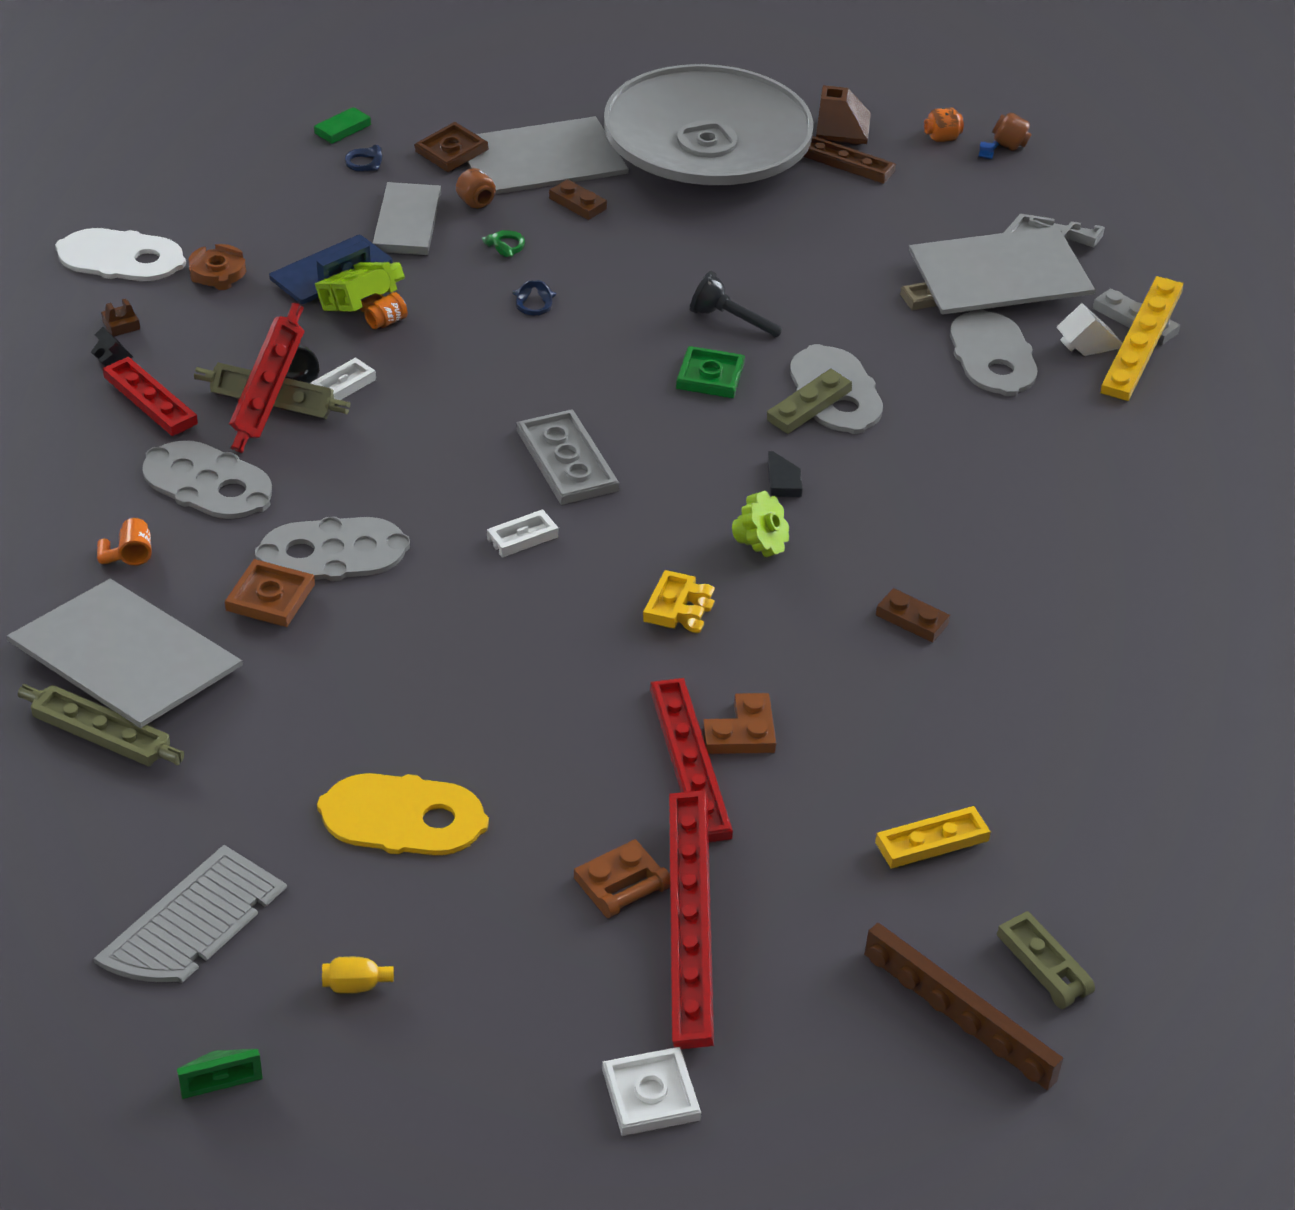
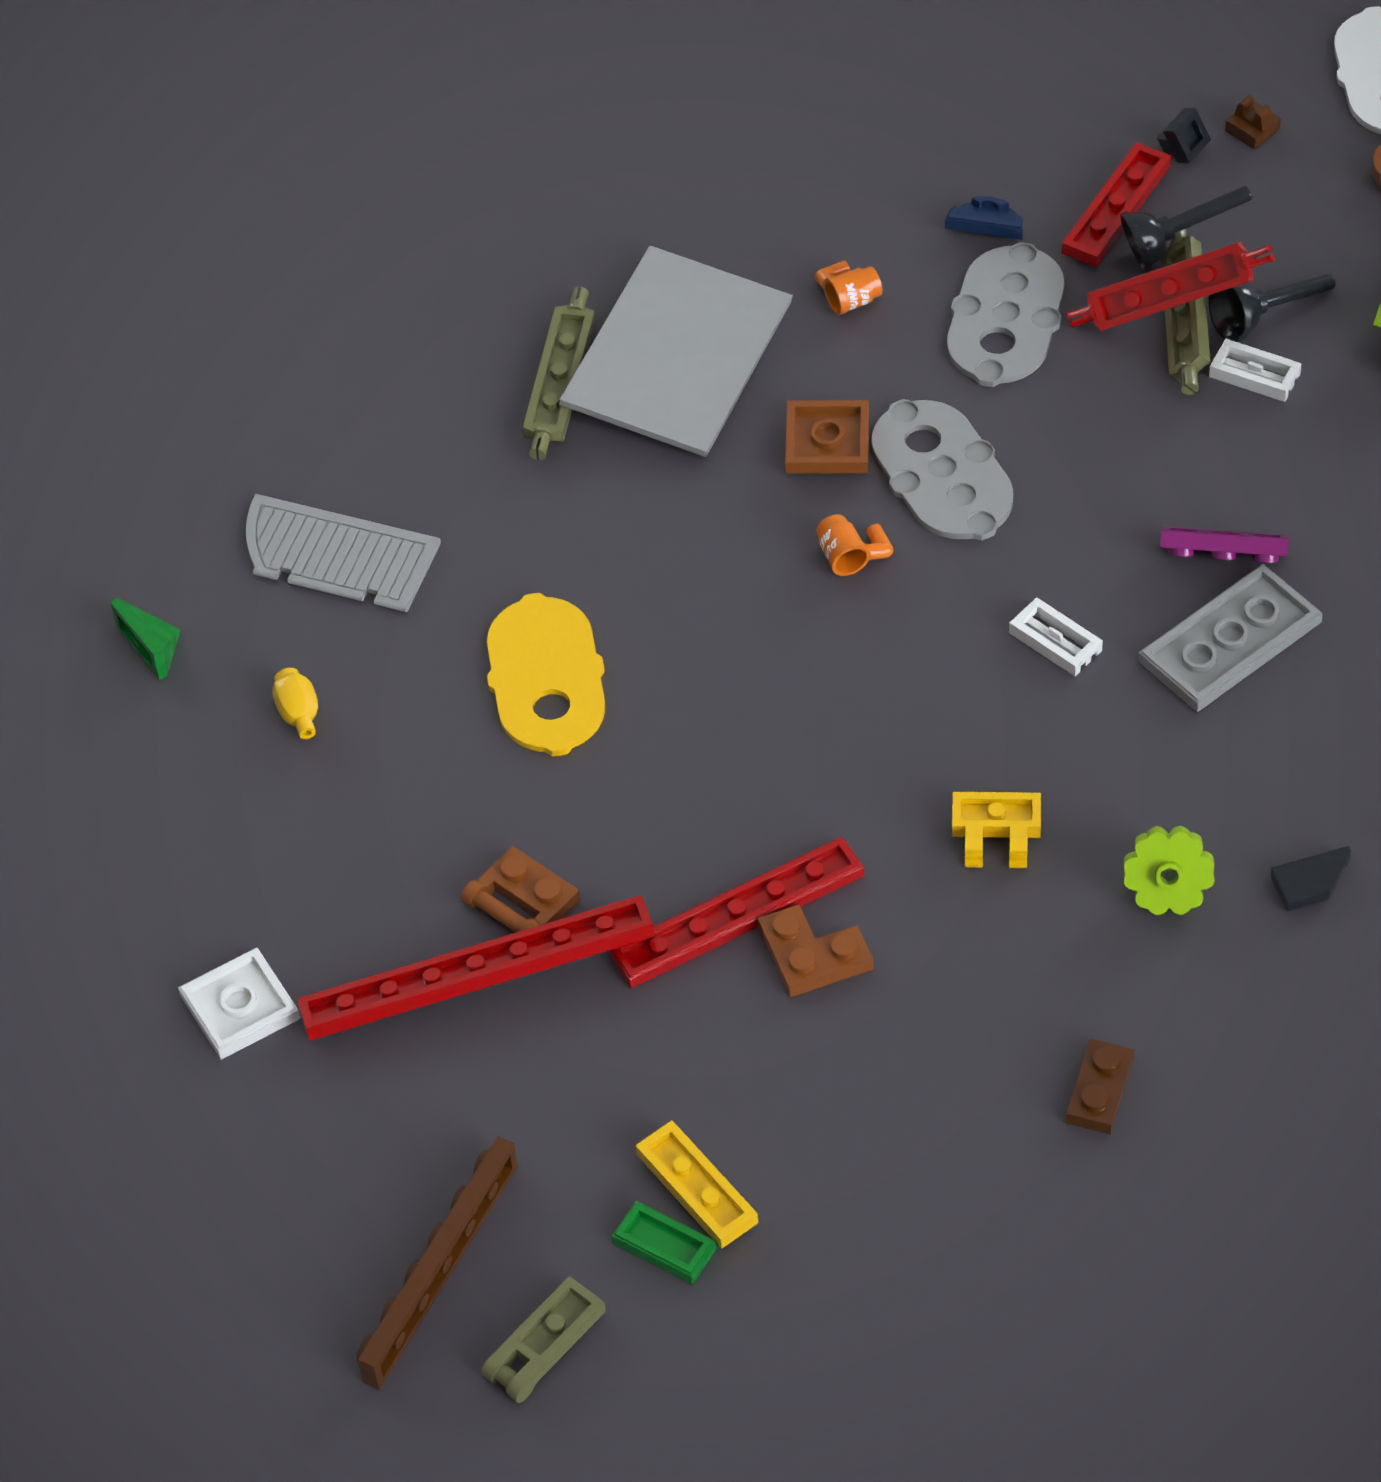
camera: 80 degrees right, 10 degrees up
(112, 458) = (986, 216): none -> dark blue plate
(201, 385) = (1149, 235): none -> black piece
(381, 608) = (845, 548): none -> orange piece
(490, 432) = (1224, 543): none -> magenta plate
(973, 872) = (664, 1242): none -> green tile

